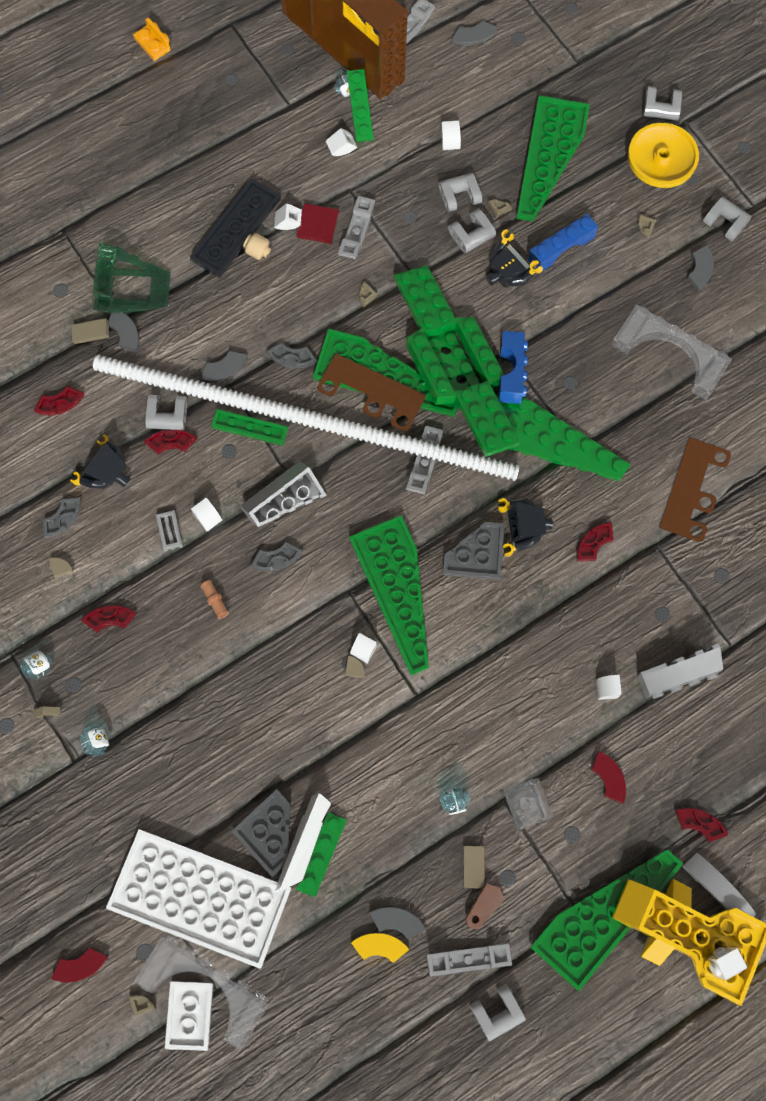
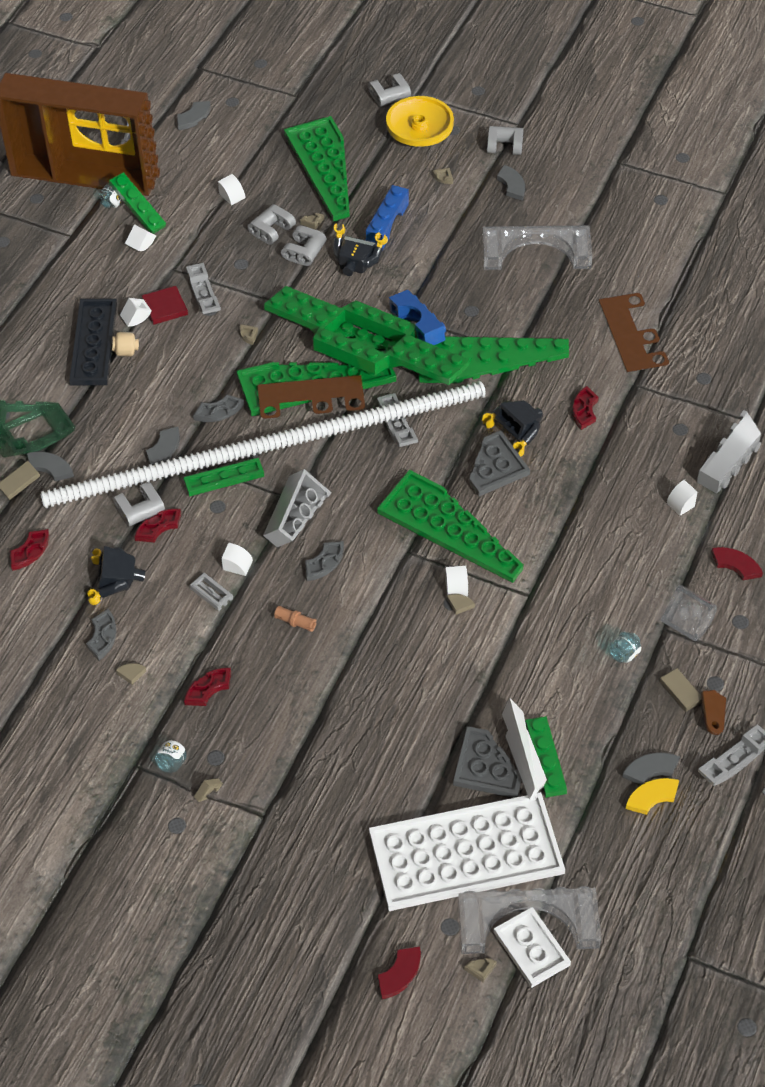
camera: 30 degrees left, 20 degrees down
(94, 741) = (272, 783): clear light blue head -> none

